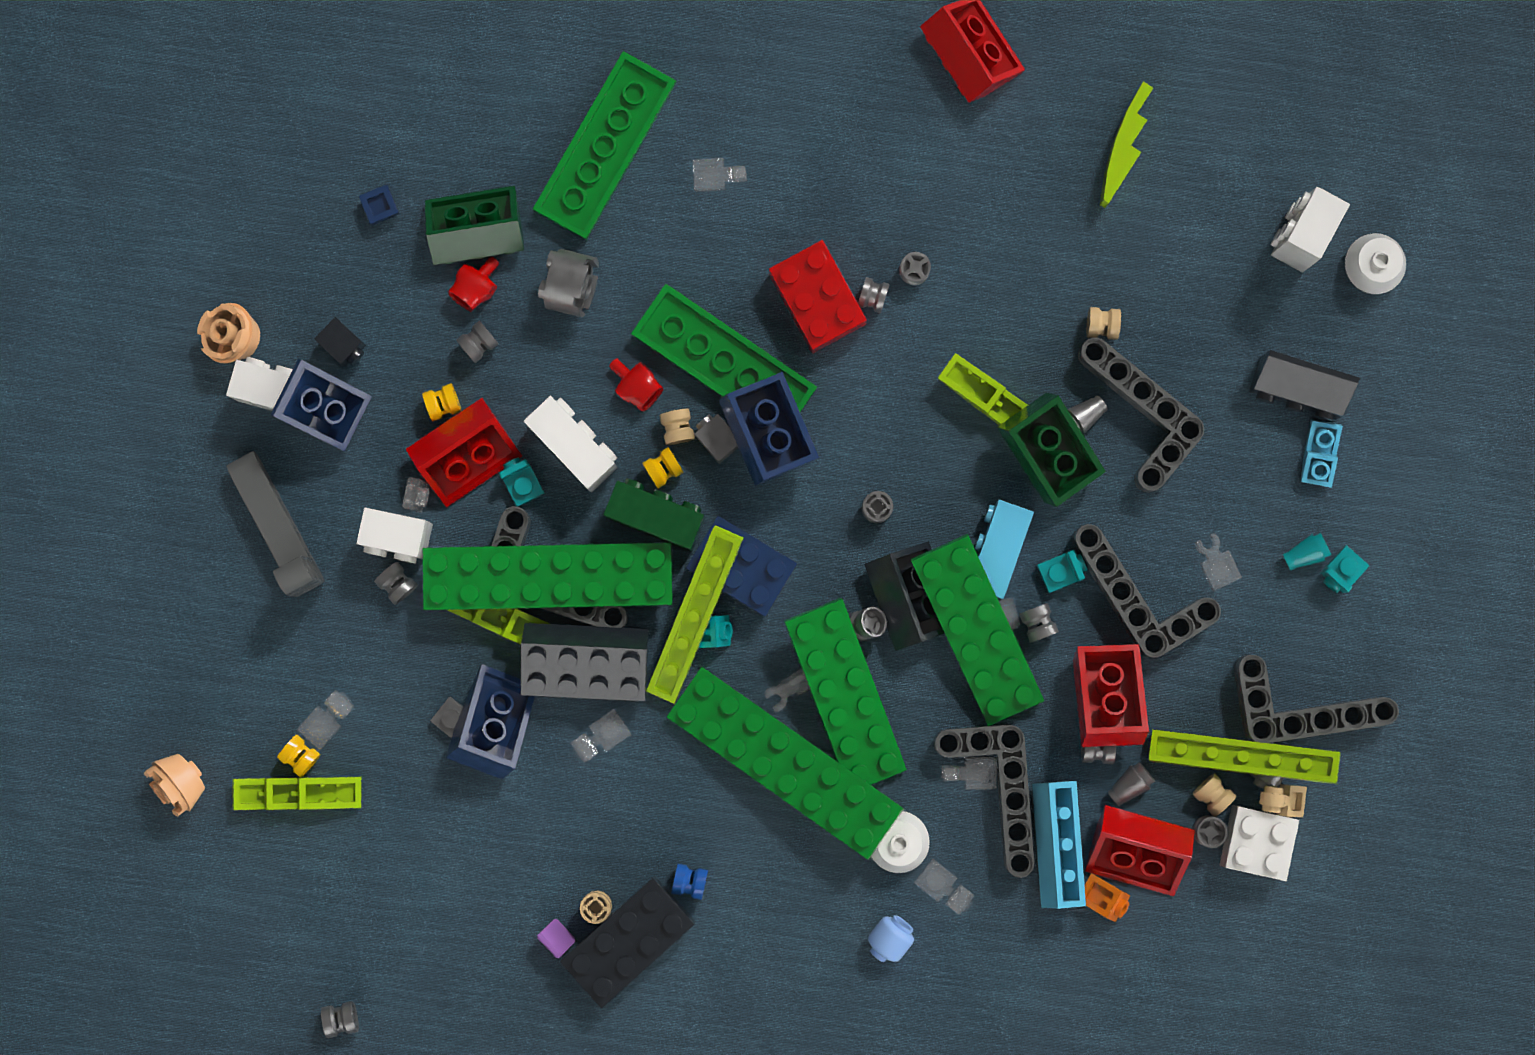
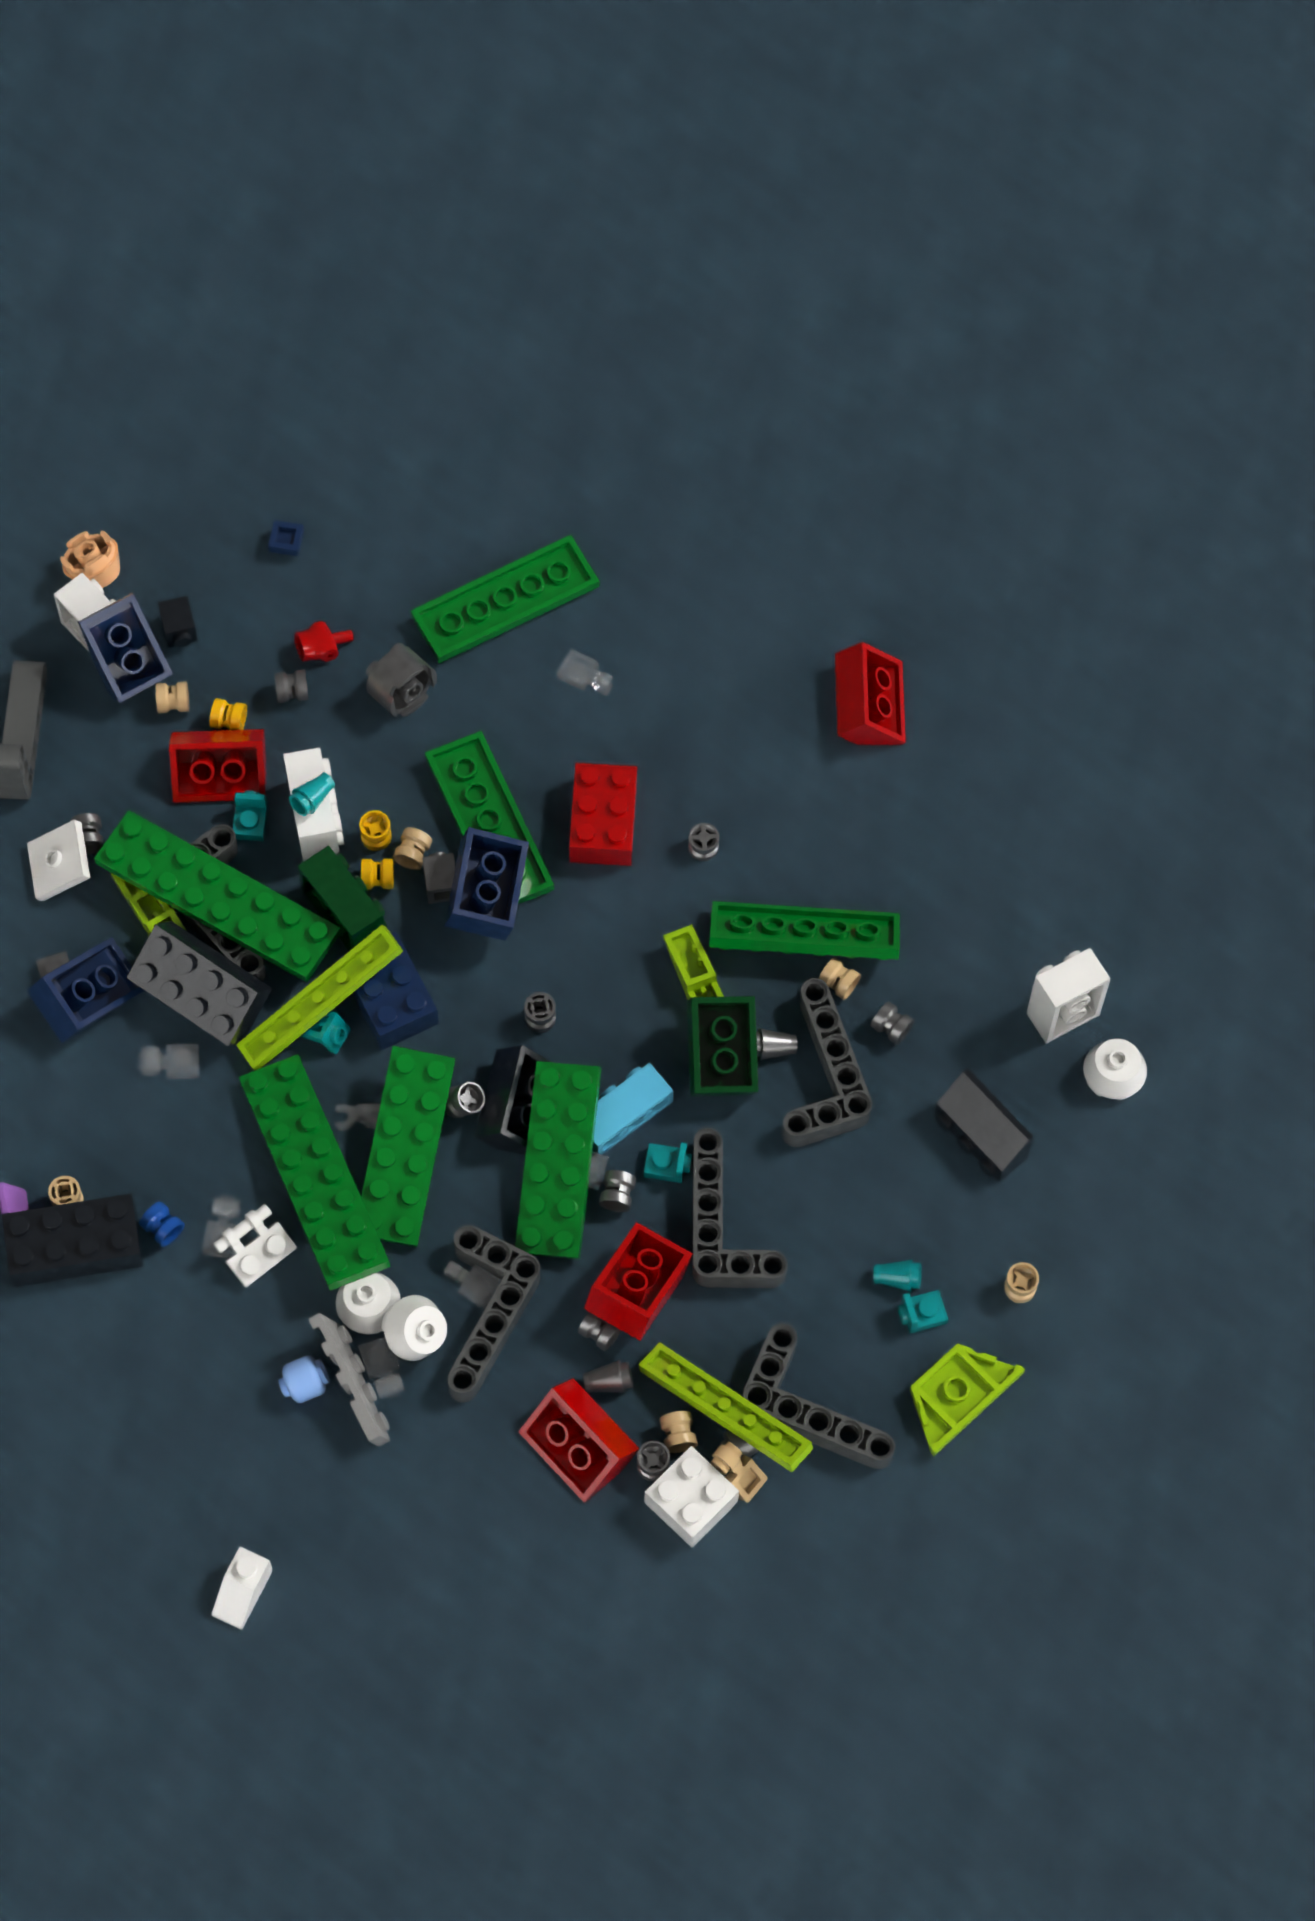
camera: 30 degrees right, 20 degrees down
(383, 415) = (172, 697): none -> tan wheel
(390, 623) = (58, 860): none -> white plate
(393, 533) = (112, 787): white brick -> none
(415, 495) = (152, 769): clear plate -> none
(473, 225) = (352, 597): dark green slope -> none
(575, 446) = (308, 796): none -> teal cone
(633, 425) = (372, 824): none -> yellow wheel
(637, 385) = (402, 797): red piece -> none
(742, 858) = (226, 1209): none -> clear plate
(784, 857) = (259, 1254): none -> white plate
(873, 295) = (653, 841): flat silver wheel -> none
(930, 917) = (351, 1378): none -> light grey wing
(954, 844) = (414, 1327): none -> white cone
(1051, 299) = (805, 930): none -> green plate
(1059, 844) = (508, 1385): medium azure brick -> none
(1105, 898) = (519, 1463): orange bracket -> none
(1122, 154) = (946, 851): lime slope -> none
(1174, 336) = (894, 1024): none -> flat silver wheel
(1219, 567) = (810, 1239): clear plate -> none
(1321, 453) = (965, 1200): medium azure slope -> none
(1414, 621) = (958, 1392): none -> lime wing
(1415, 497) = (1023, 1276): none -> tan wheel

